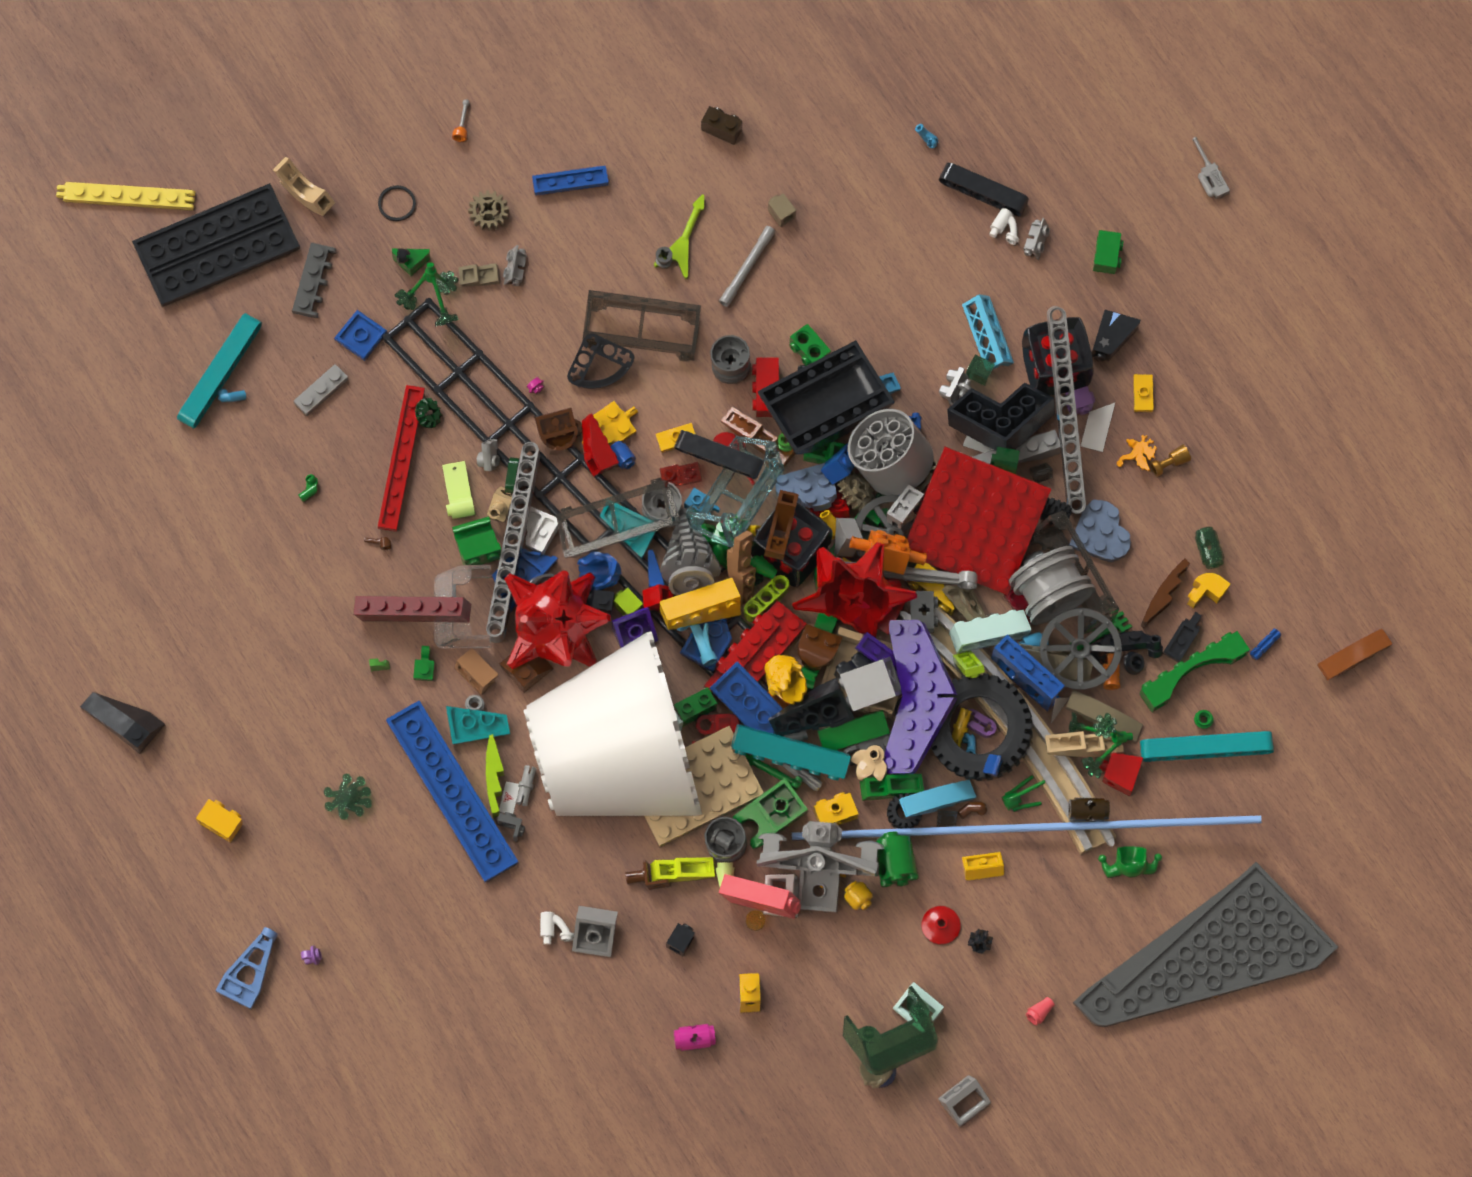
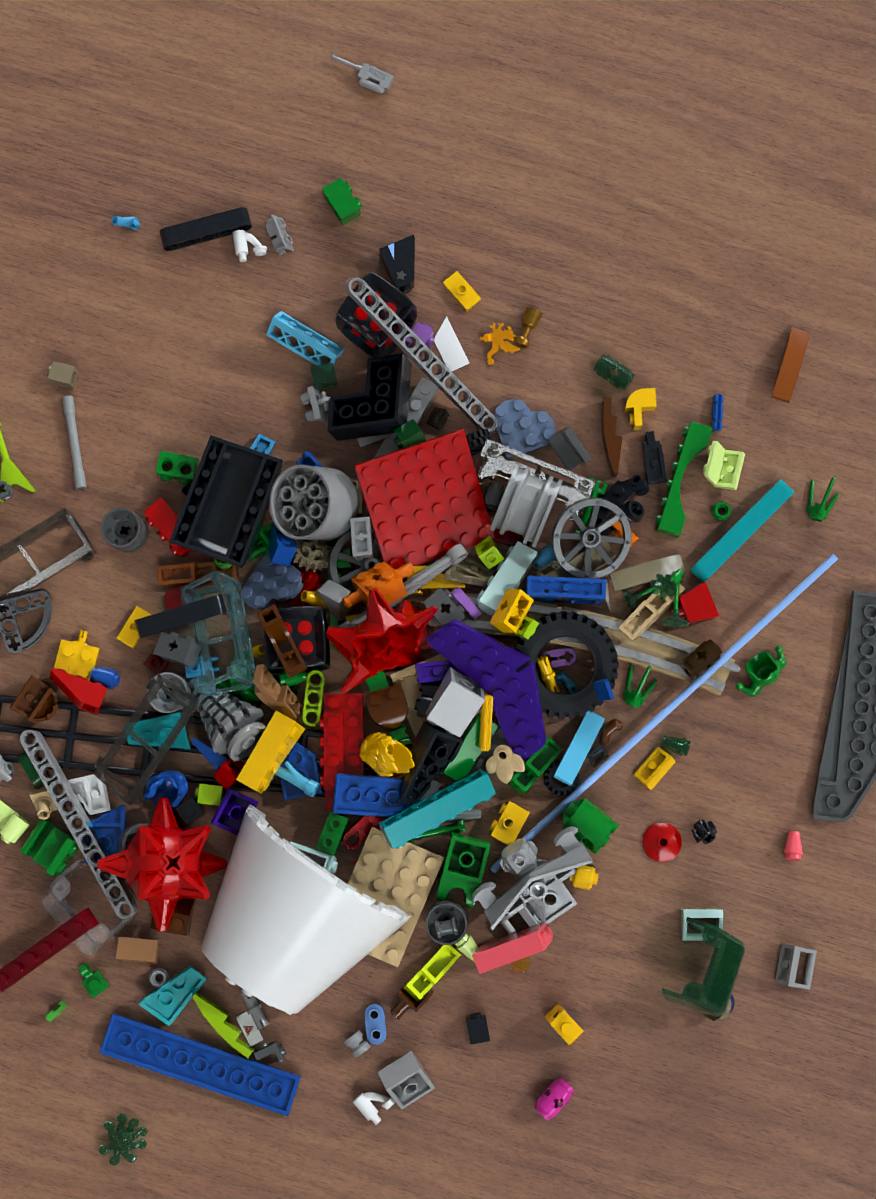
camera: 35 degrees left, 10 degrees up
(580, 873) = (356, 1044): none -> light grey wheel
(607, 872) = (375, 1024): none -> medium blue plate
(696, 476) = (177, 649): none -> dark grey brick
(882, 719) = (486, 723): none -> yellow axle
(943, 621) = (466, 603): none -> medium lavender beam
(972, 649) = (511, 611): none -> yellow brick
(993, 600) = (489, 552): none -> lime brick
(1015, 862) = (676, 744): none -> clear green cone
(1123, 575) = (569, 448): none -> dark grey panel
(1232, 685) = (723, 466): none -> yellowish green bracket
(1279, 781) = (819, 511): none -> green plant

